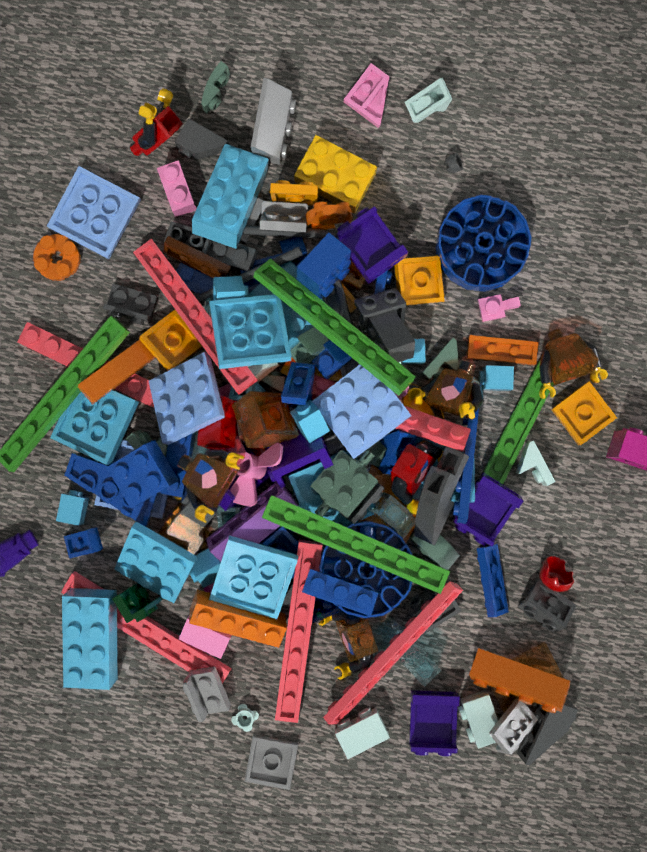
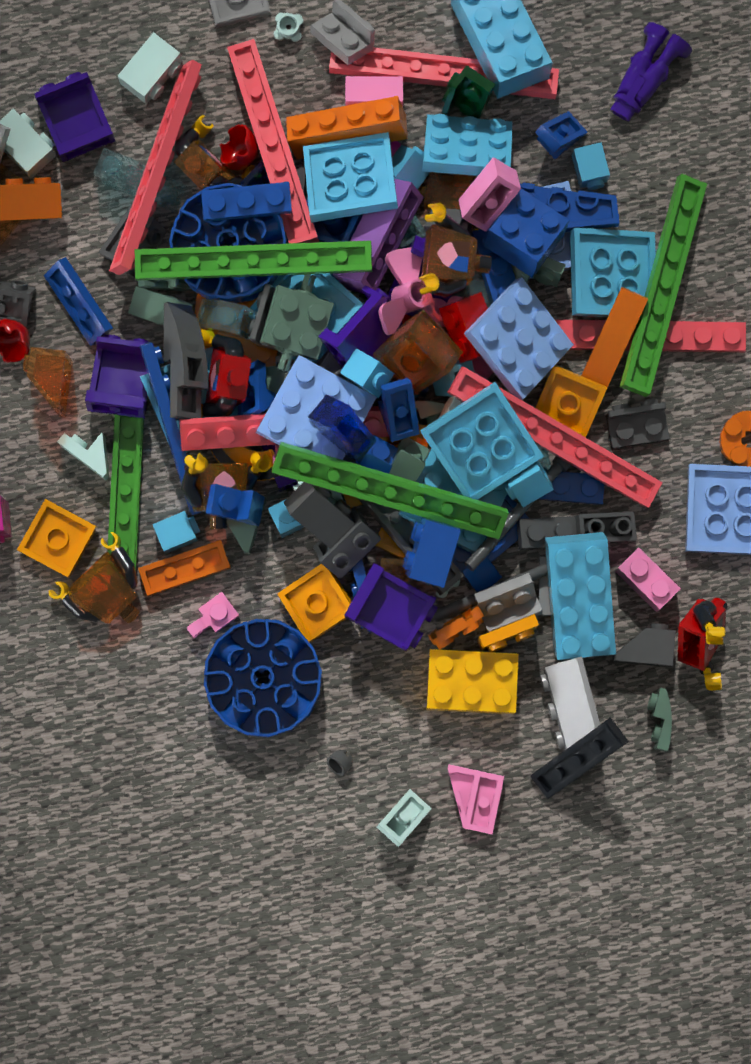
camera: 155 degrees right, 5 degrees down
(156, 514) = (489, 194): none -> bright pink brick
(195, 258) = (585, 506): reddish brown tile -> none
(285, 79) = (579, 758): none -> black tile
(323, 639) = (240, 149): none -> red hair
(348, 386) = (342, 427): none -> clear blue slope
(449, 372) = (235, 504): none -> blue slope
(540, 530) = (51, 375): none -> clear orange slope

